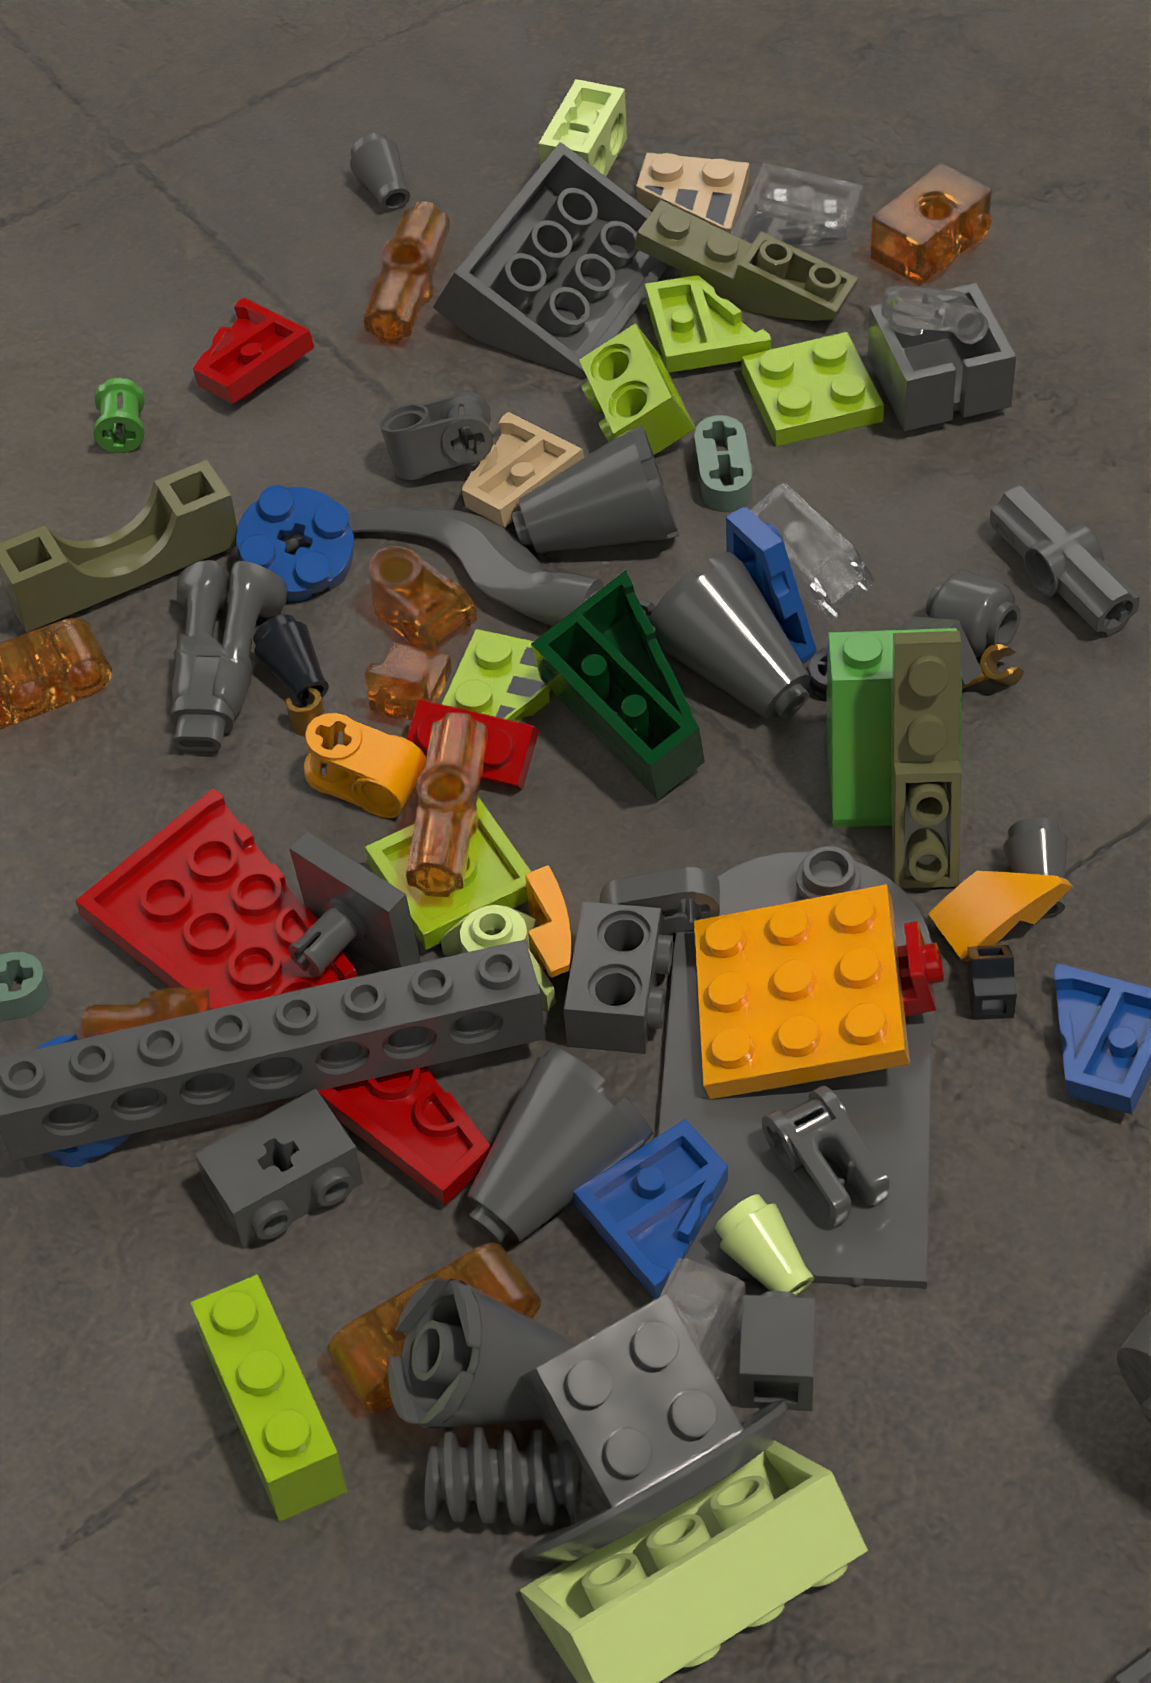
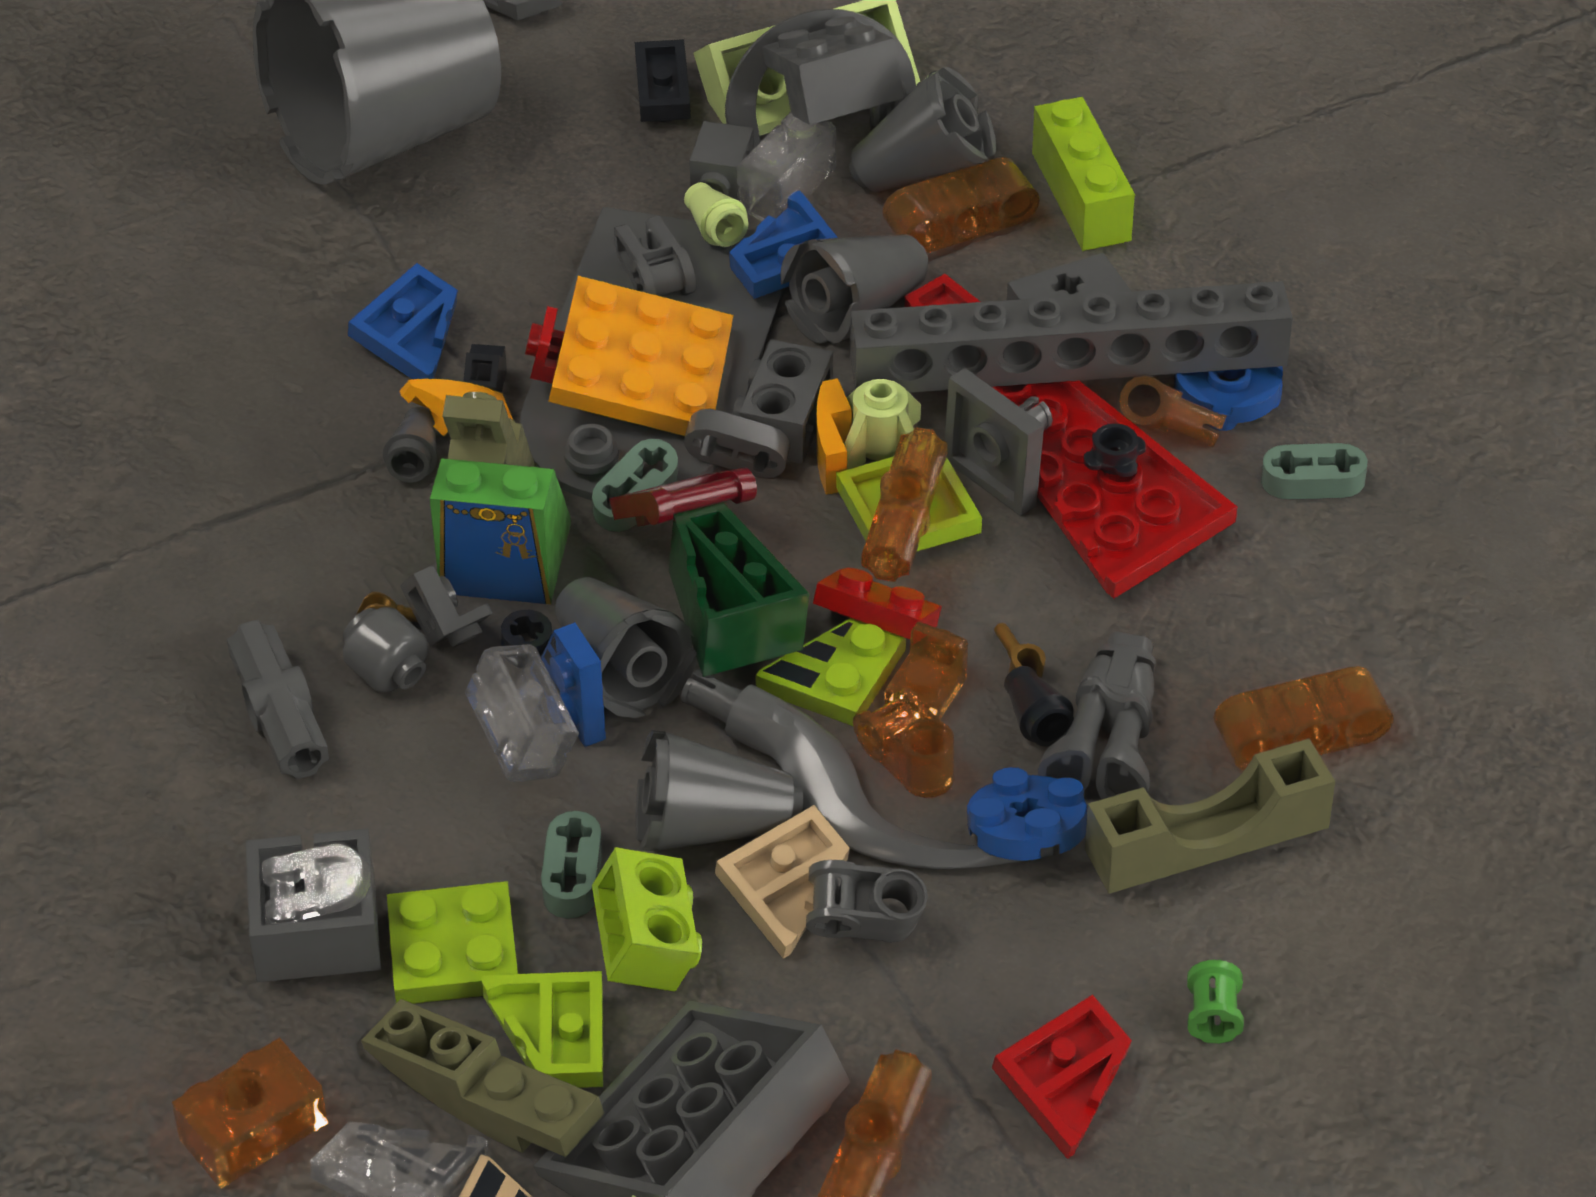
camera: 175 degrees left, 5 degrees down
(211, 912) = (1115, 450): none -> black plate
(369, 767) = (976, 587): light orange piece -> none
(714, 802) = (661, 502): none -> dark red plate
(754, 842) = (627, 477): none -> sand green beam
(906, 1521) = (662, 80): none -> black plate

